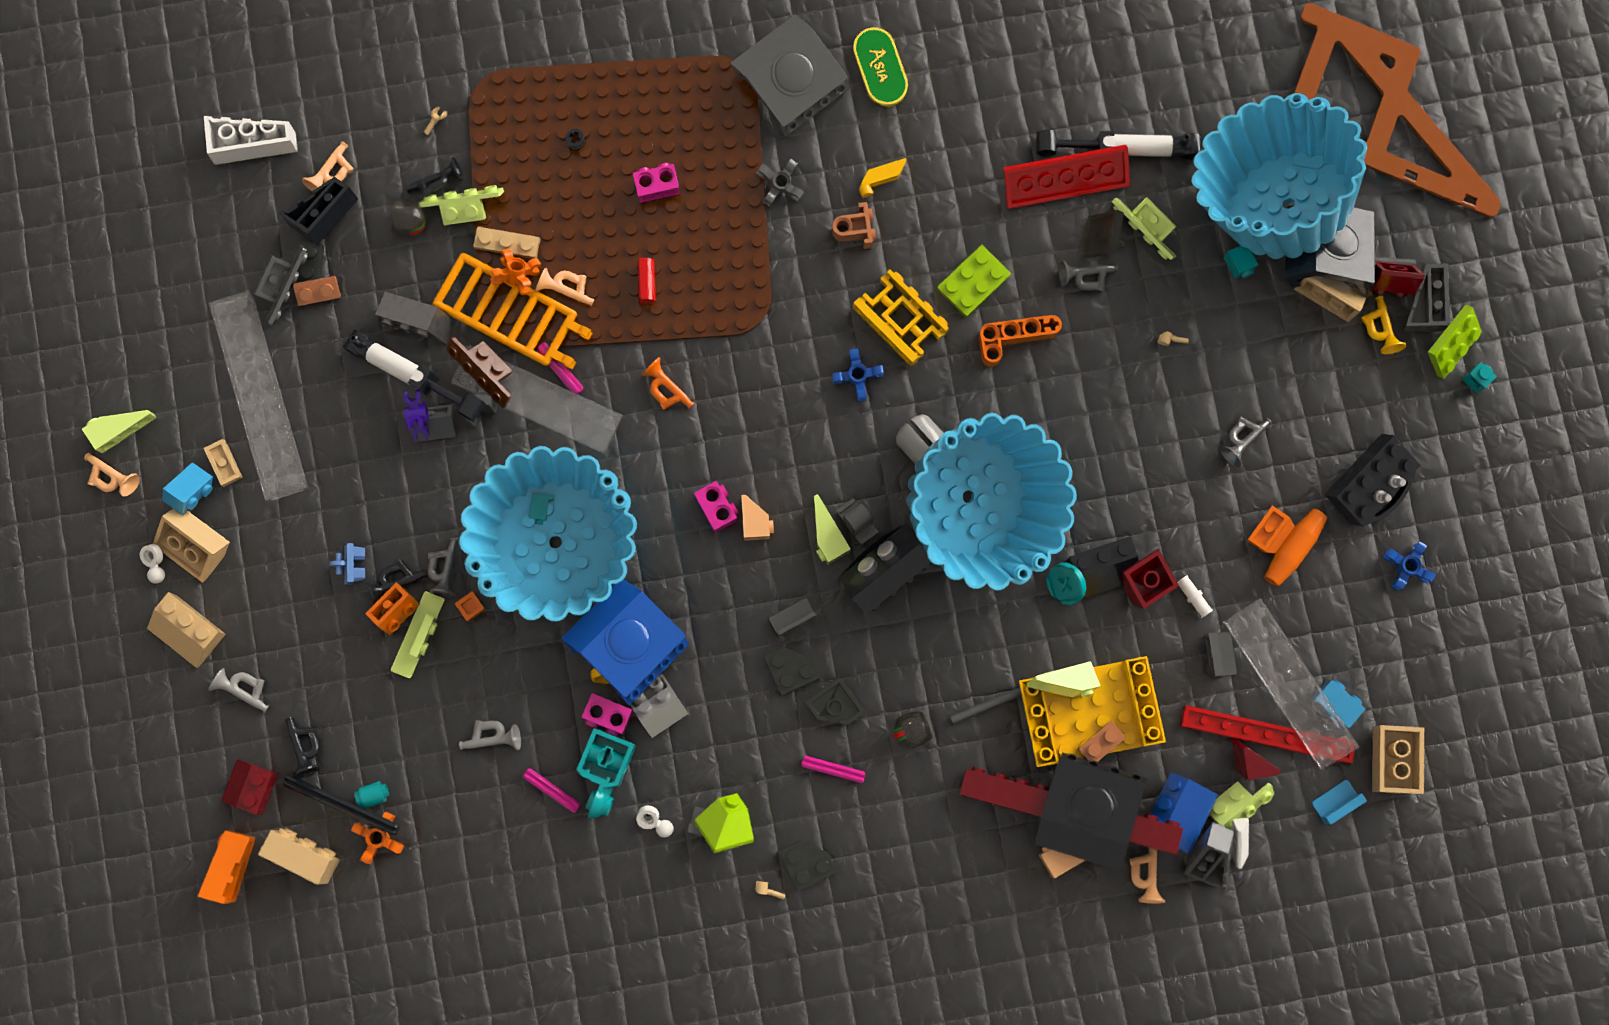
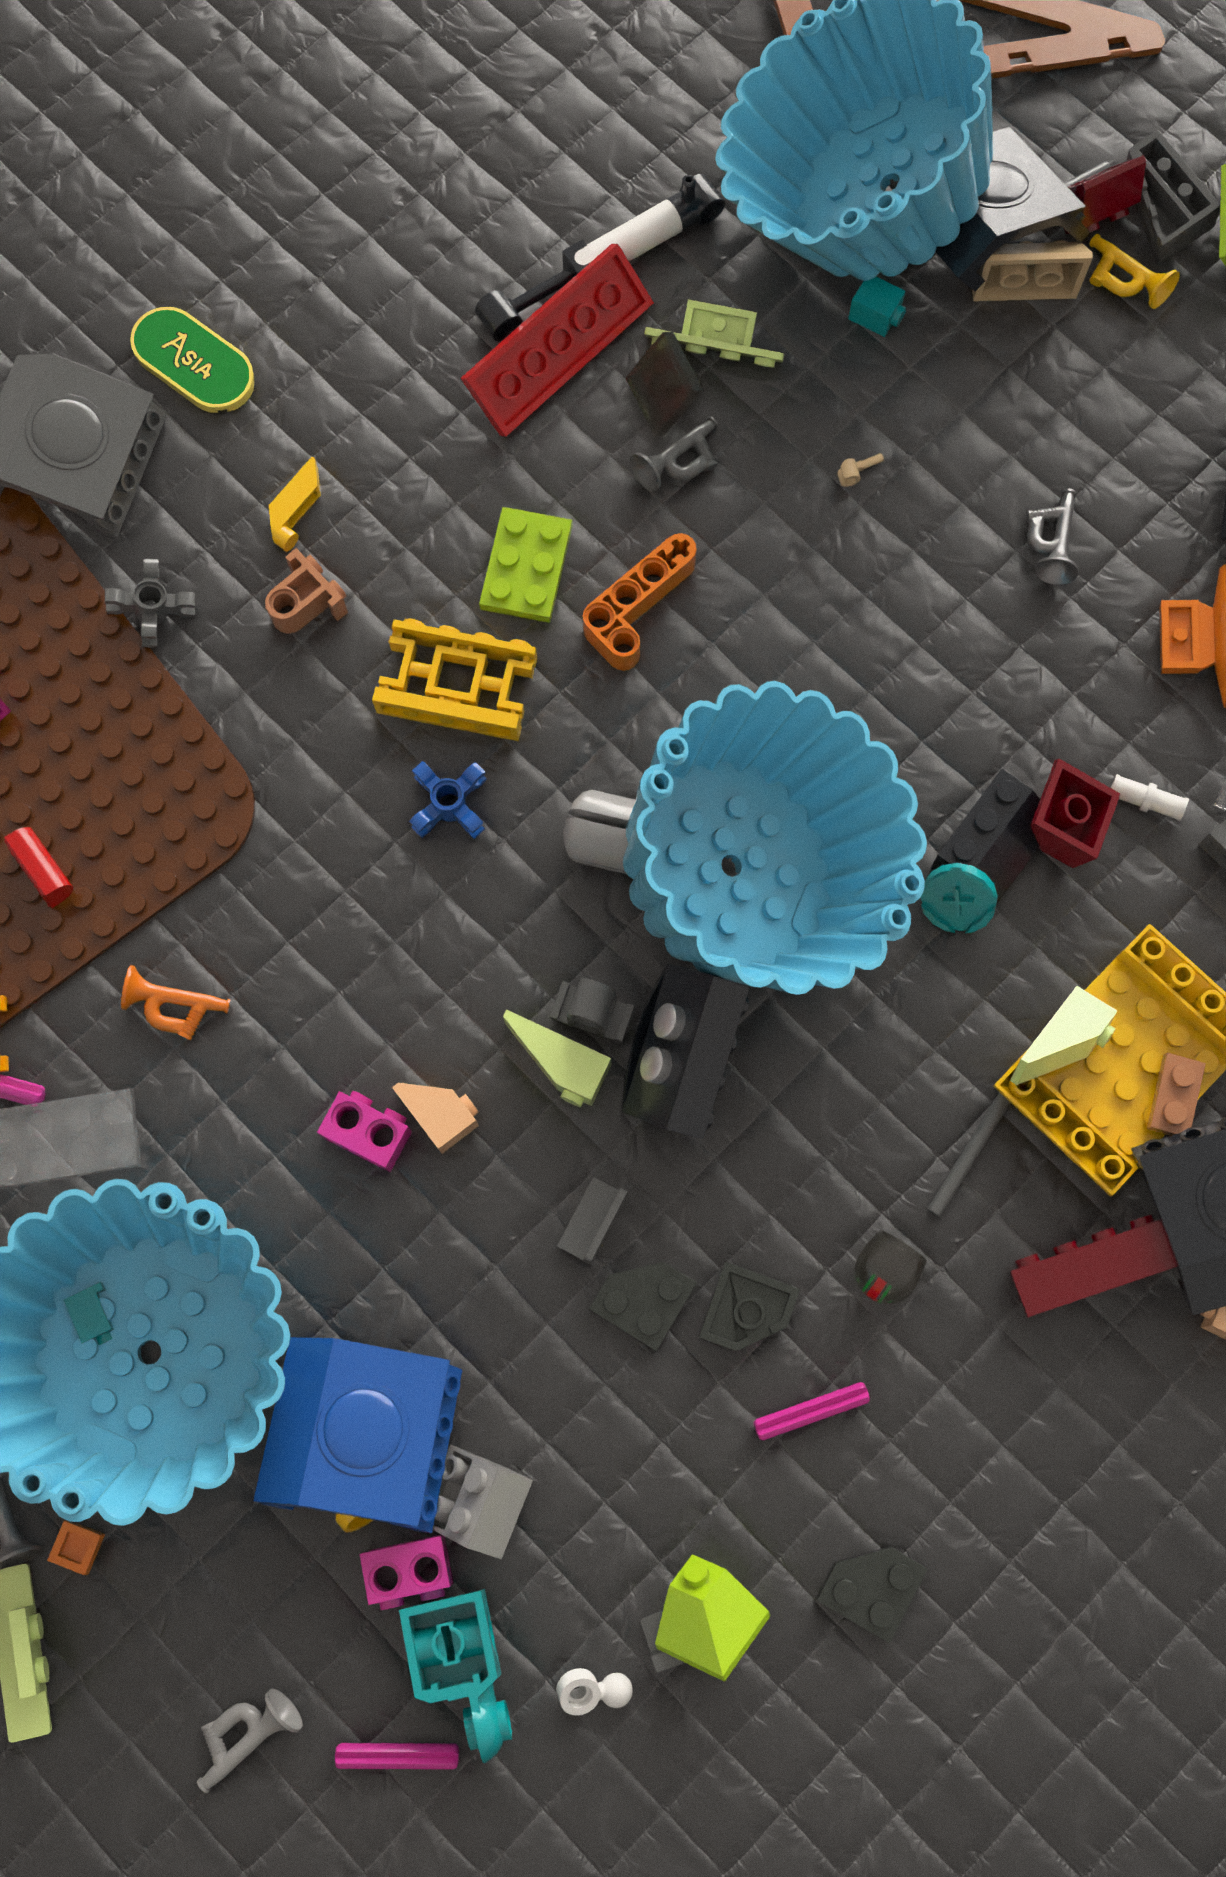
camera: 30 degrees left, 5 degrees down
(762, 888) = (833, 1680): tan hand -> none

